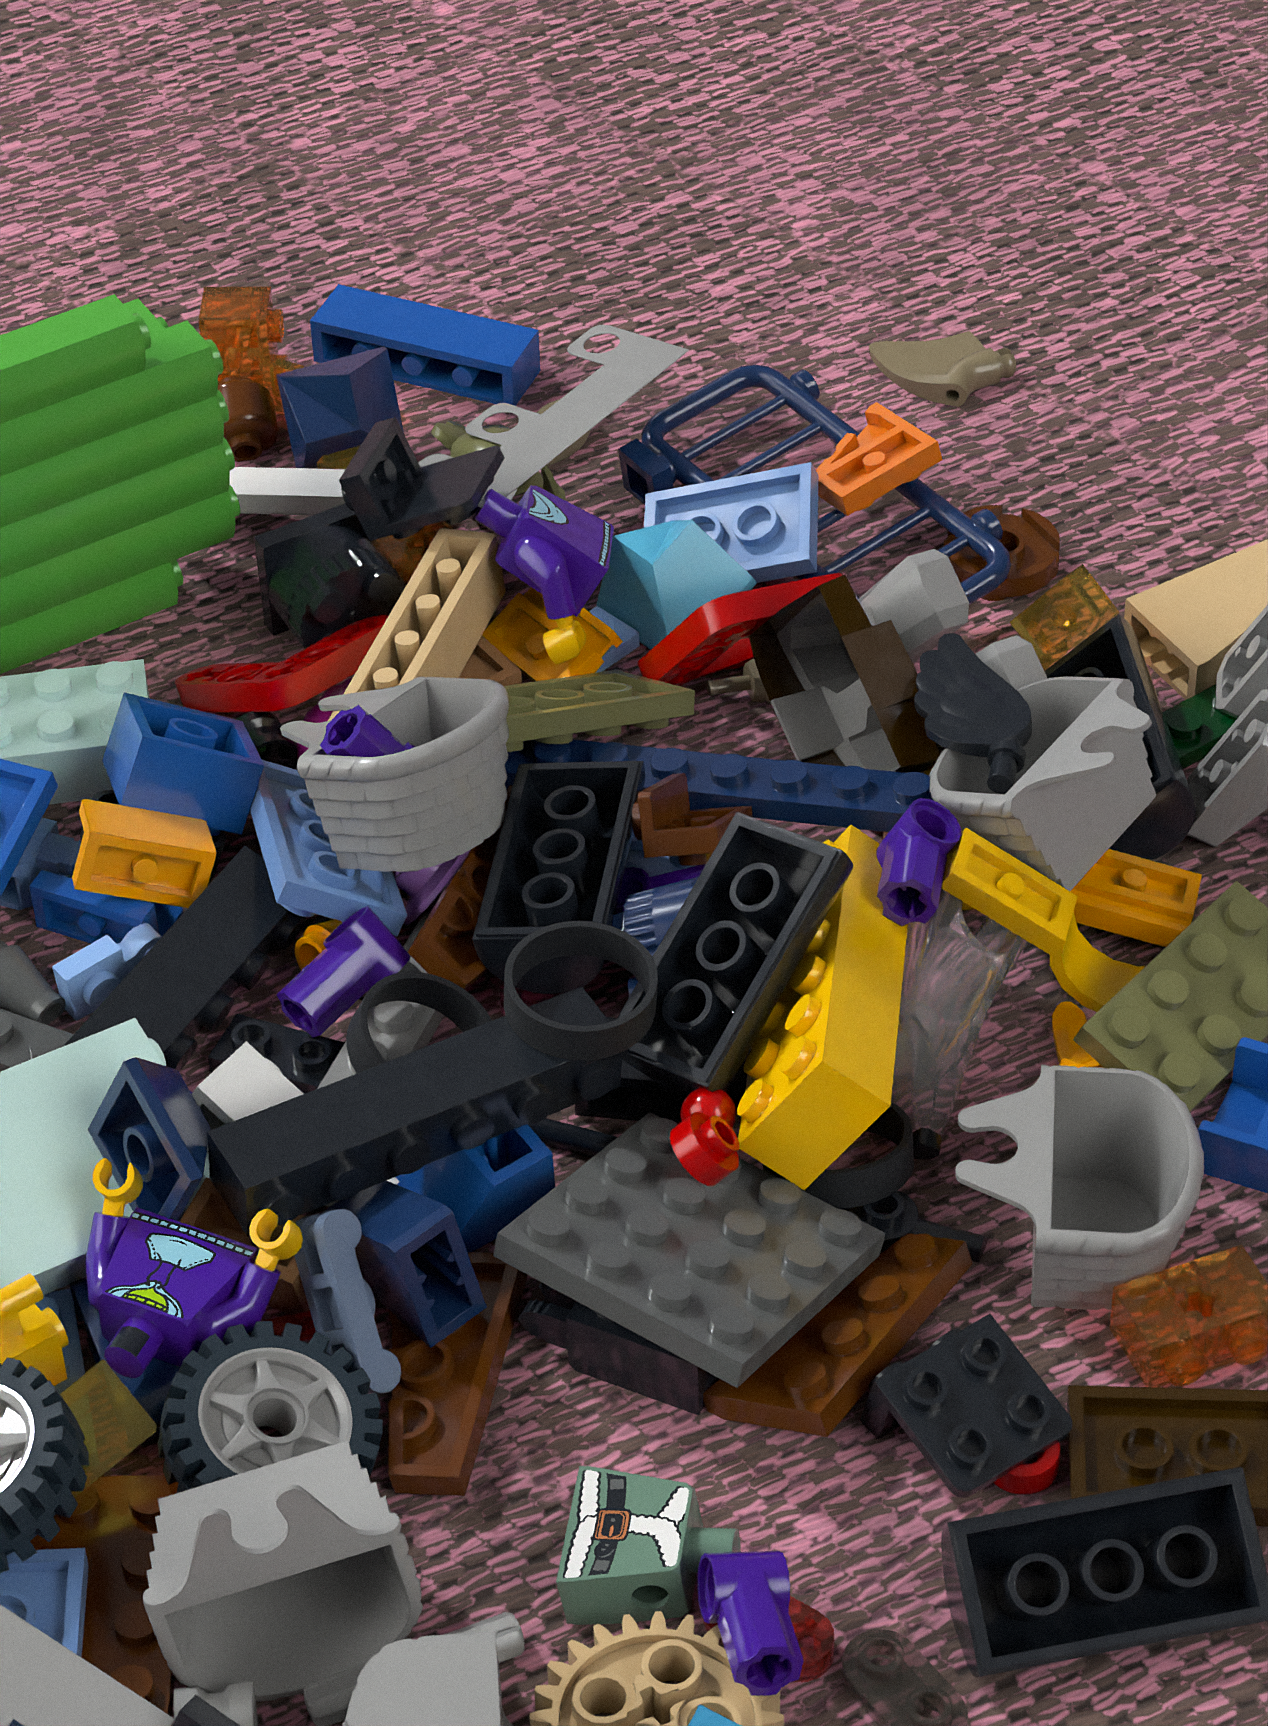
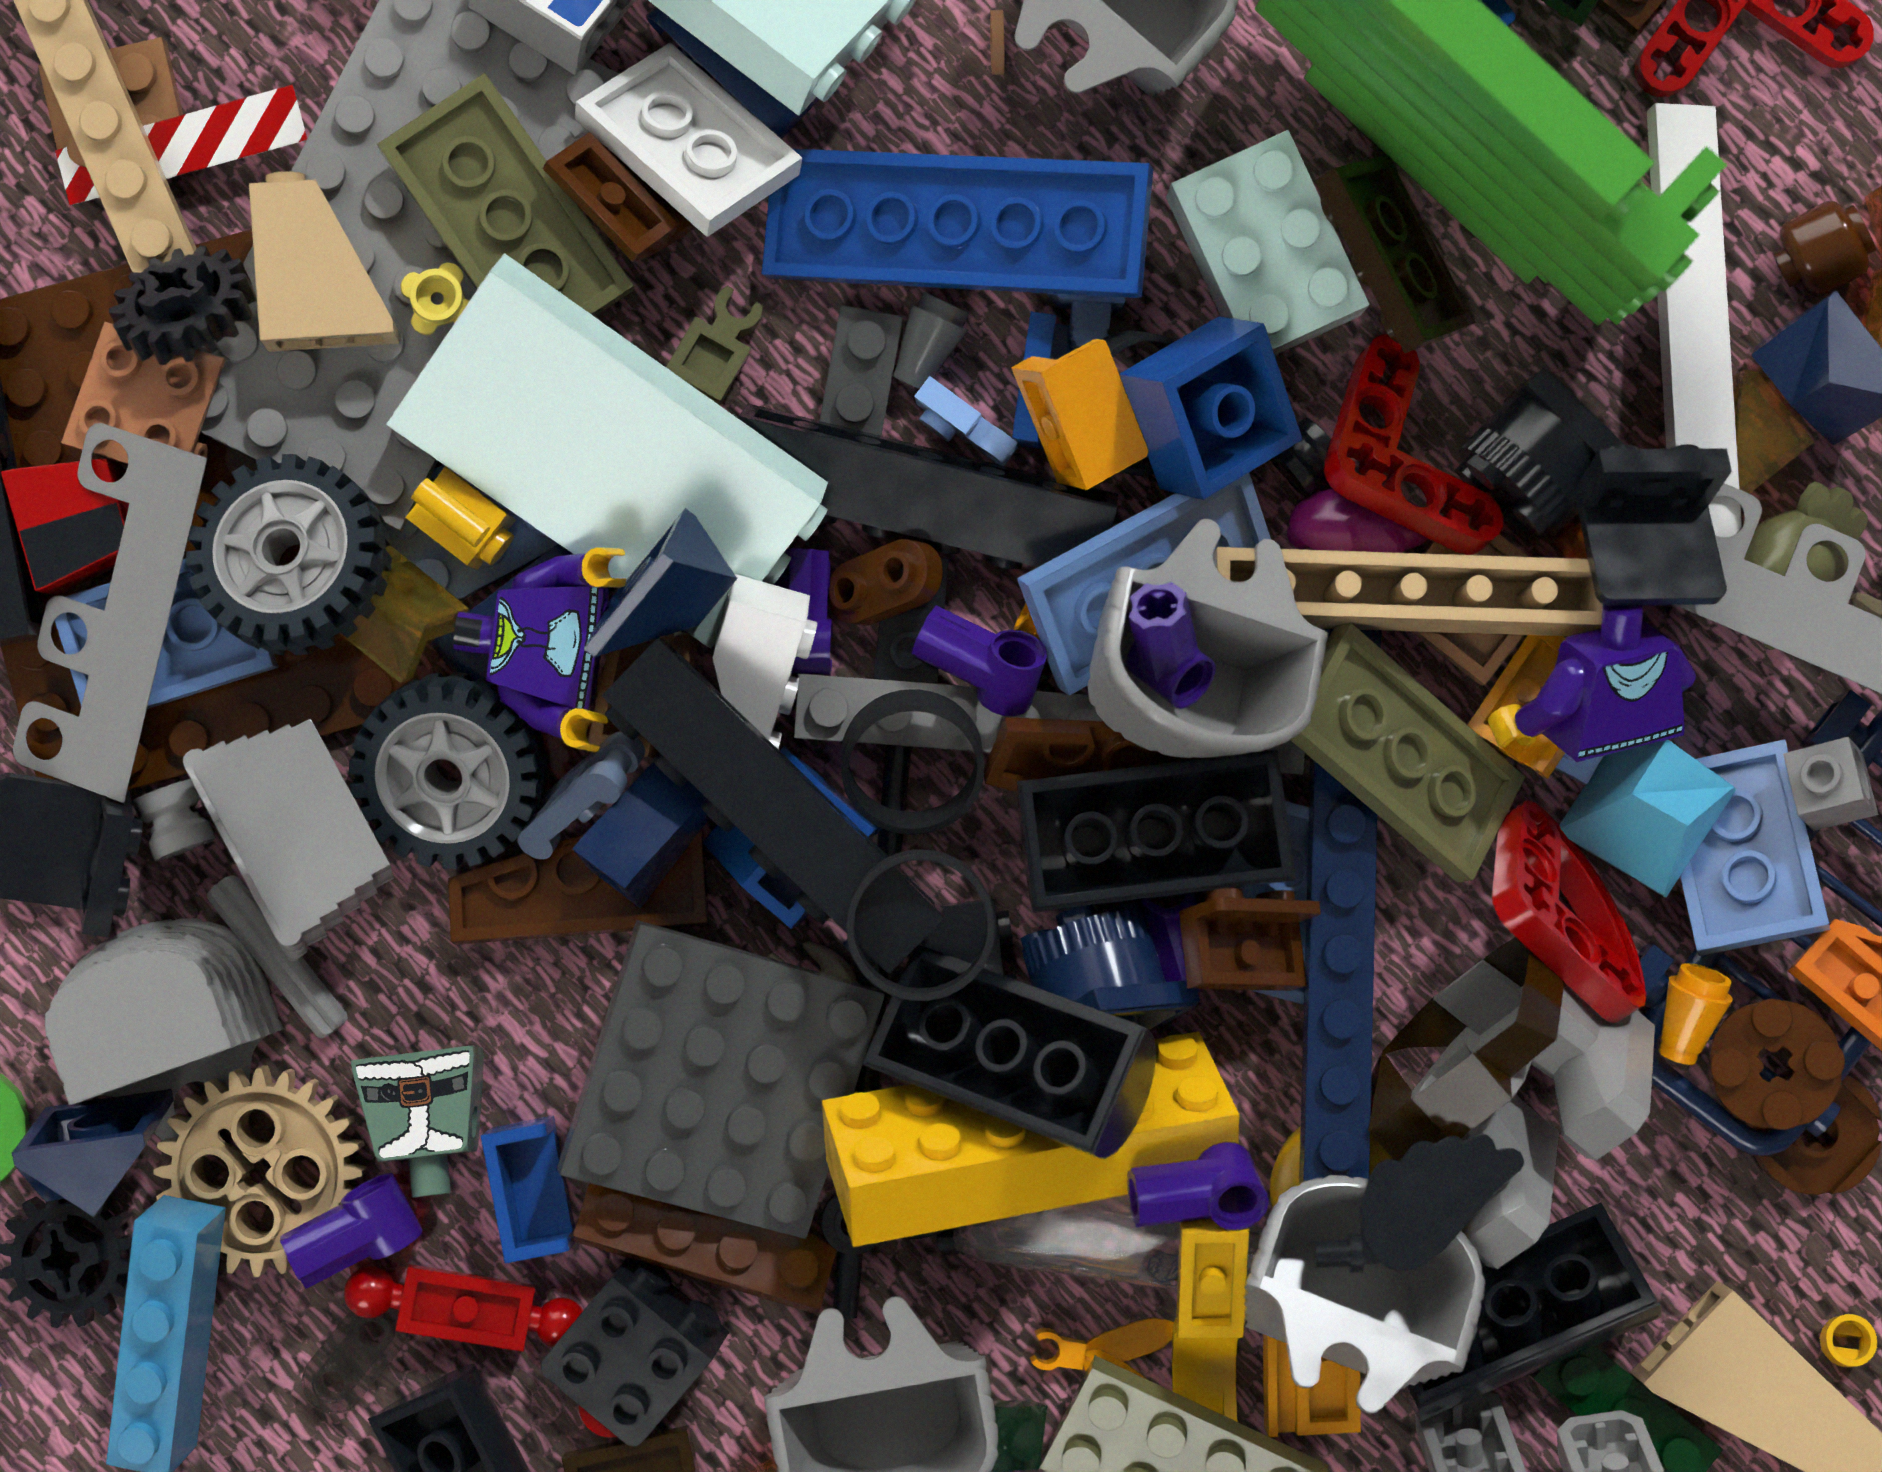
camera: 75 degrees right, 45 degrees up
(159, 638) = (1393, 253): none -> dark brown plate
(253, 1024) = (879, 587): none -> reddish brown plate
(690, 450) = (1830, 784): none -> light grey brick
(706, 1136) = (808, 1073): red plate -> none
(760, 1482) = (528, 1190): none -> blue panel
(856, 561) = (1692, 1011): none -> light orange cone
(874, 1565) = (460, 1306): none -> red plate
(923, 510) = (1813, 1059): none -> reddish brown plate
(1064, 616) = (1655, 1239): clear yellow panel -> none
(1193, 554) = (1848, 1326): none -> yellow hinge

